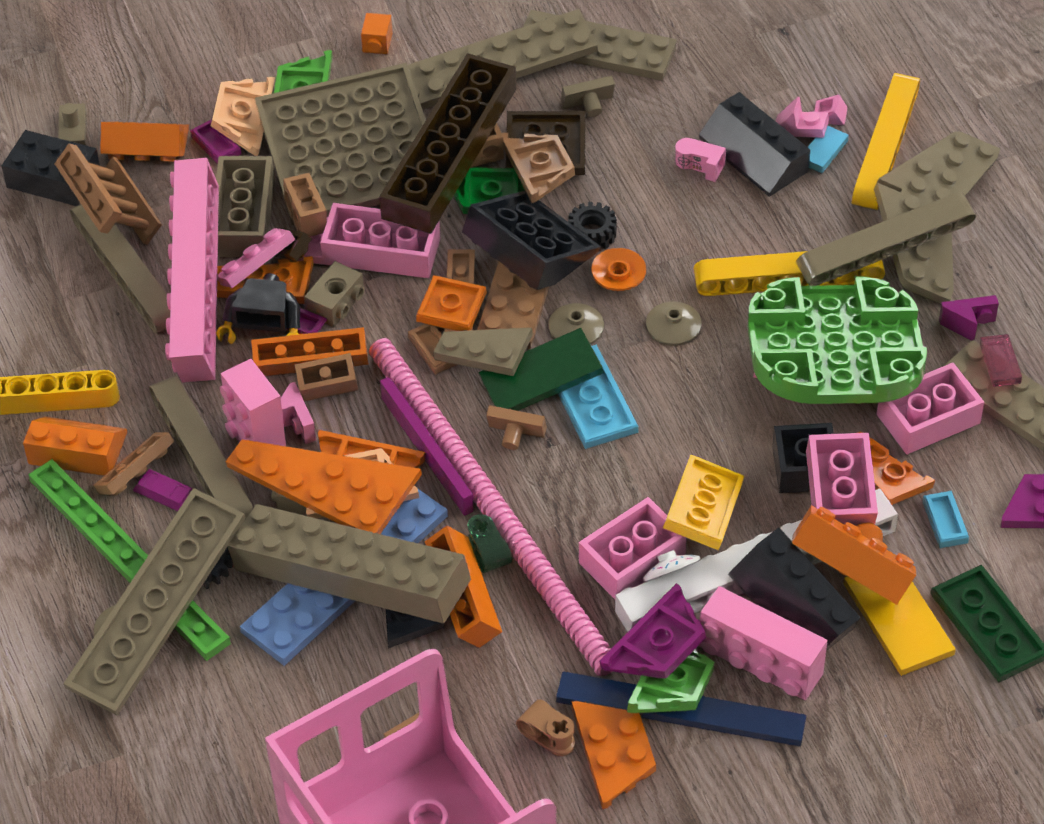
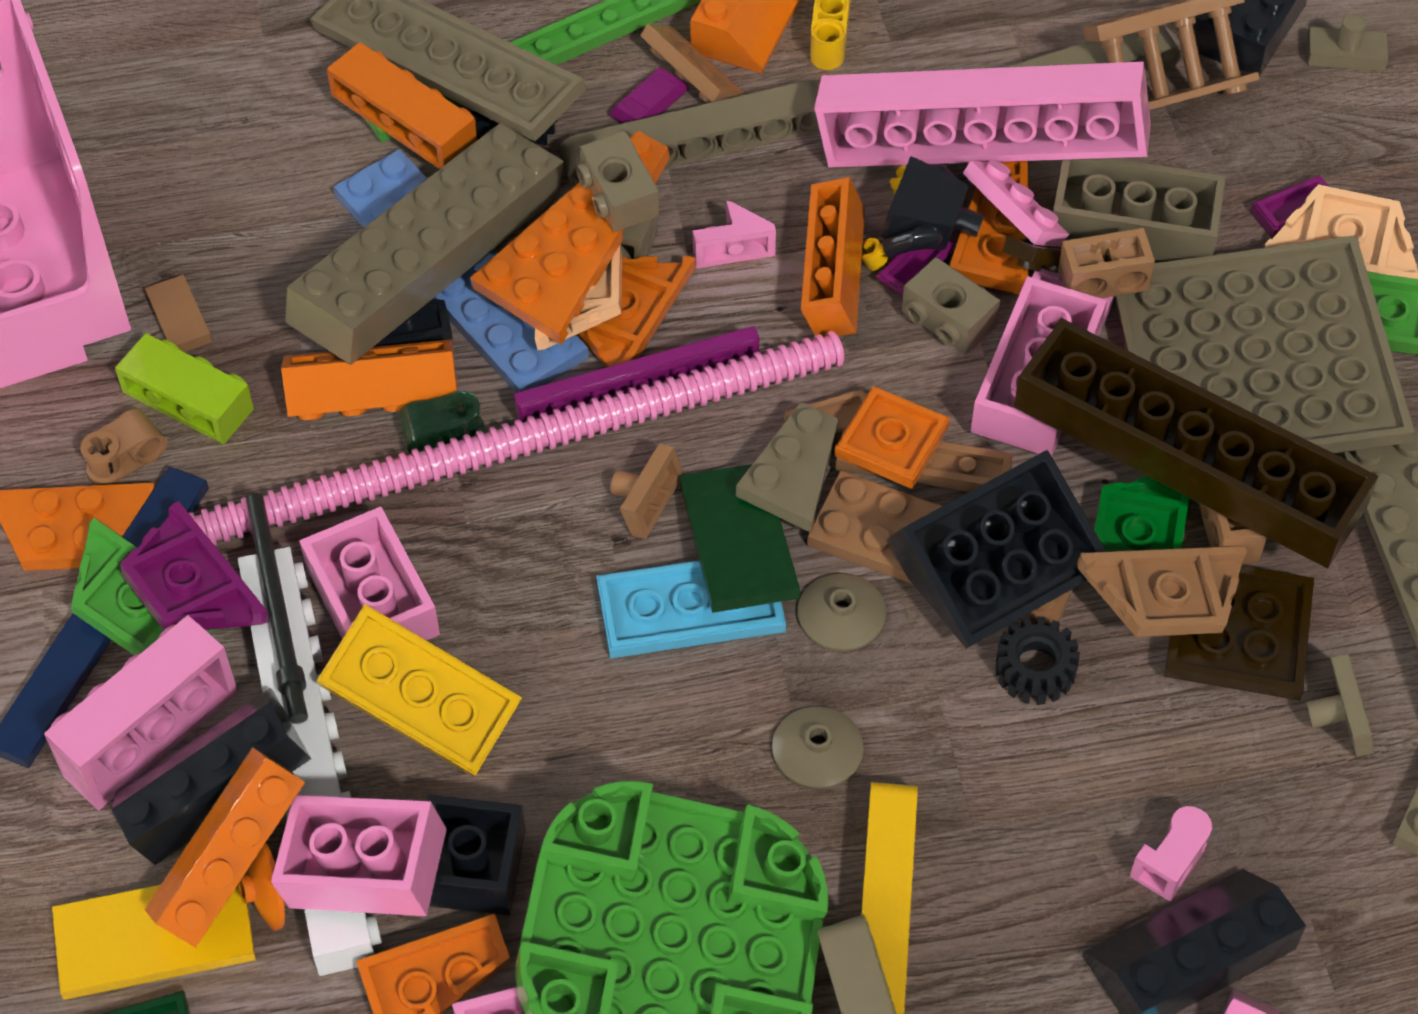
camera: 100 degrees right, 5 degrees up
(143, 140) = (1304, 117): orange slope -> none
(212, 615) = (401, 105): none -> orange brick
(252, 405) = (714, 161): bright pink brick -> none
(291, 447) = (618, 181): none -> dark tan brick
(326, 377) = (779, 269): medium nougat brick -> none
(488, 701) = (185, 388): none -> lime brick
(618, 269) = (931, 661): orange dish -> none
(668, 563) = (306, 619): white dish -> none
(718, 562) = (290, 675): none -> pearl dark grey bar

